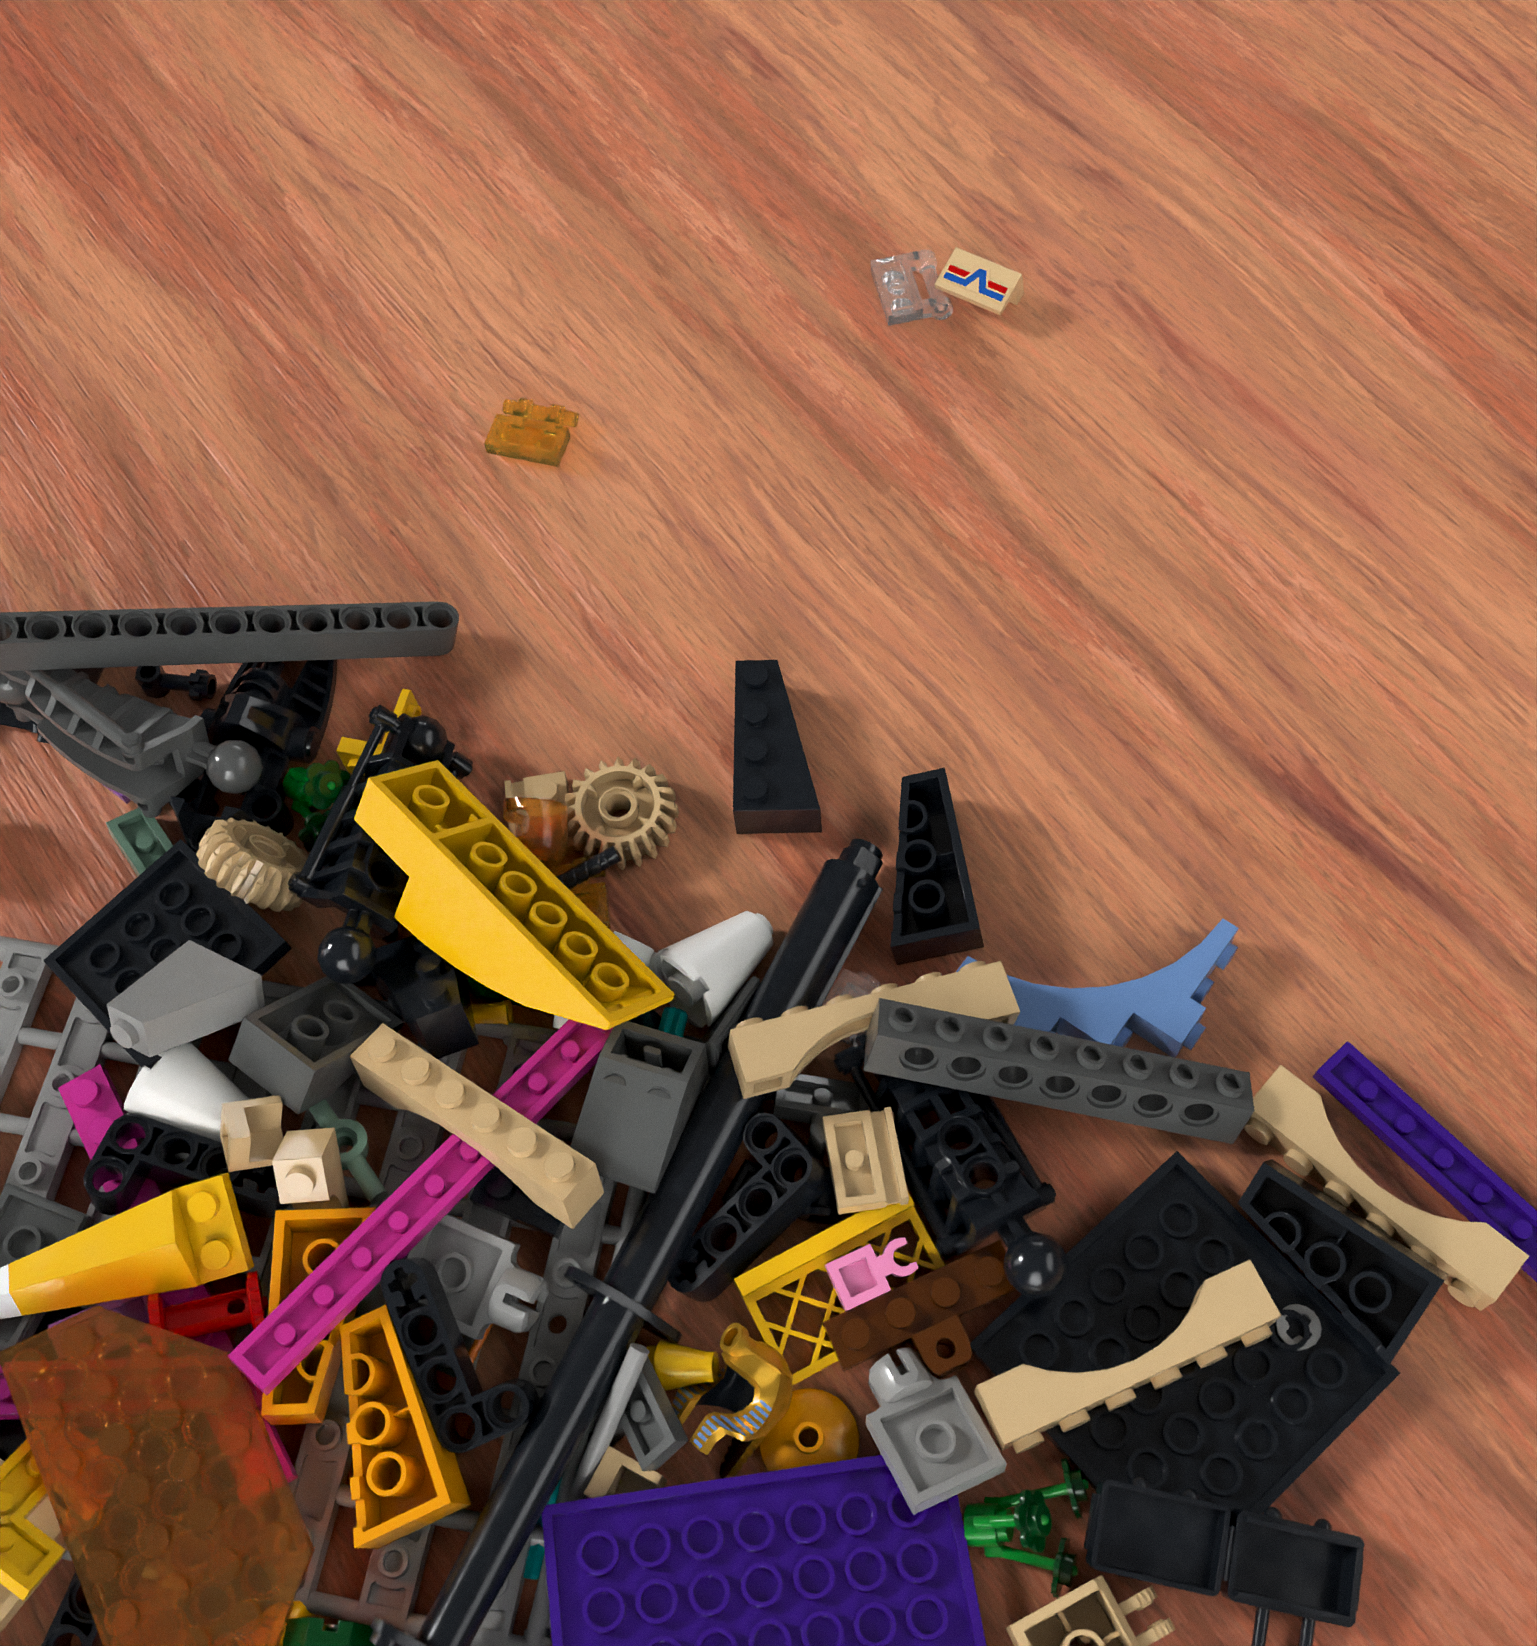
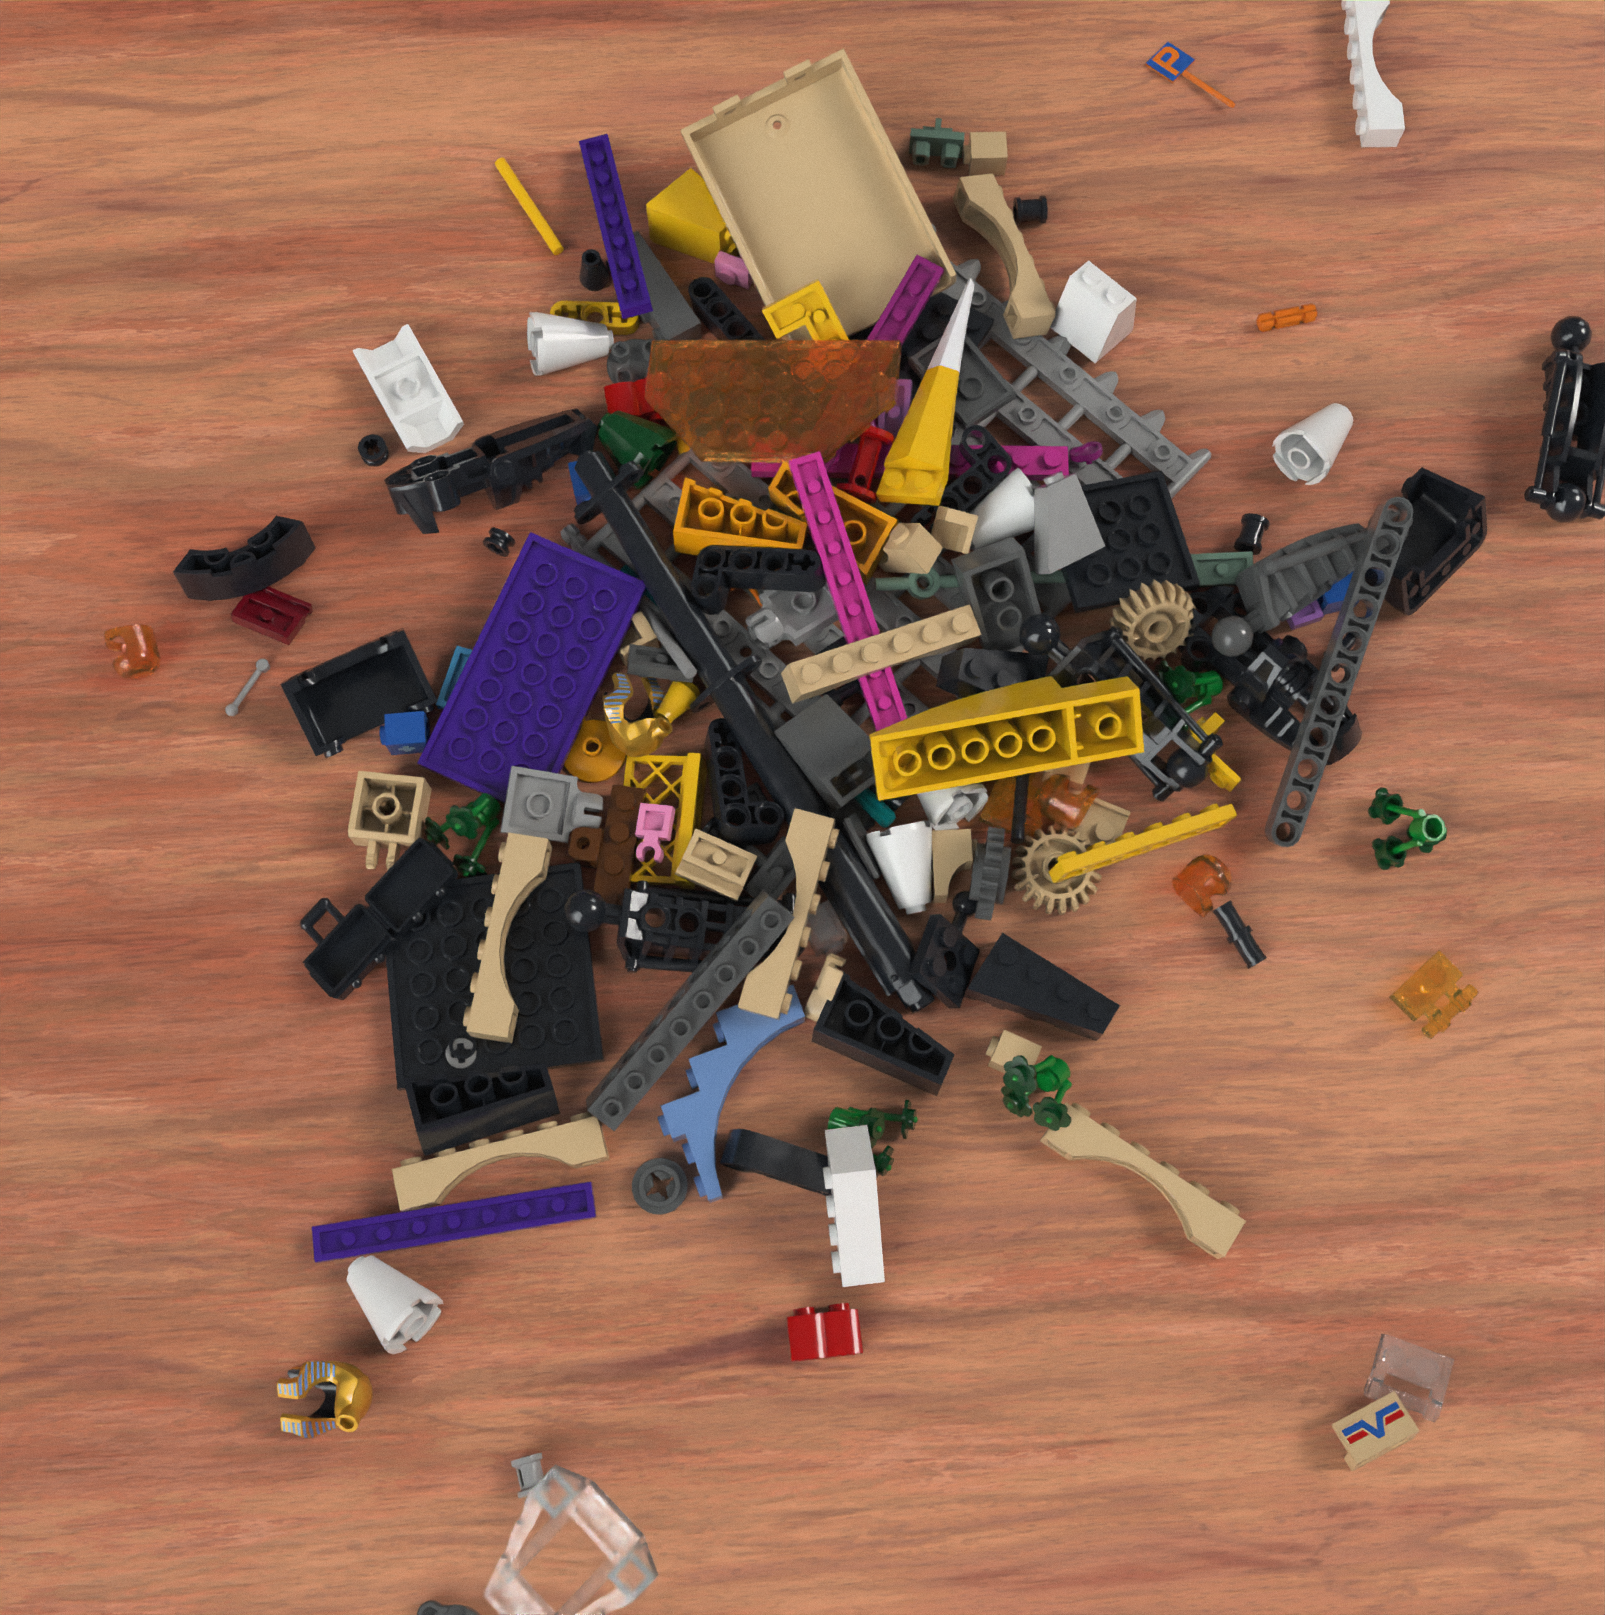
camera: 115 degrees right, 10 degrees up
(55, 1061) = (1087, 452): none -> magenta piece
(81, 840) = (1251, 533): none -> black bush
(361, 511) = (1424, 829): none -> plant
(541, 673) = (1194, 875): none -> clear orange helmet
(546, 739) = (1131, 845): none -> yellow plate
(578, 614) = (1239, 934): none -> black pin
(669, 920) = (951, 854): none -> tan arch
(674, 857) = (990, 873): none -> dark grey gear
(787, 856) = (941, 939): none -> black plate
(855, 739) = (1008, 1047): none -> tan brick
(879, 691) = (1020, 1083): none -> dark green plant
(895, 628) = (1204, 1220): none -> tan arch
(916, 953) = (825, 986): none -> tan piece
(1048, 851) = (875, 1122): none -> dark green plant
(1127, 772) = (853, 1206): none -> white wedge
(1139, 879) = (775, 1159): none -> black beam
(1270, 747) = (825, 1333): none -> red brick
(1277, 993) = (643, 1182): none -> dark grey gear

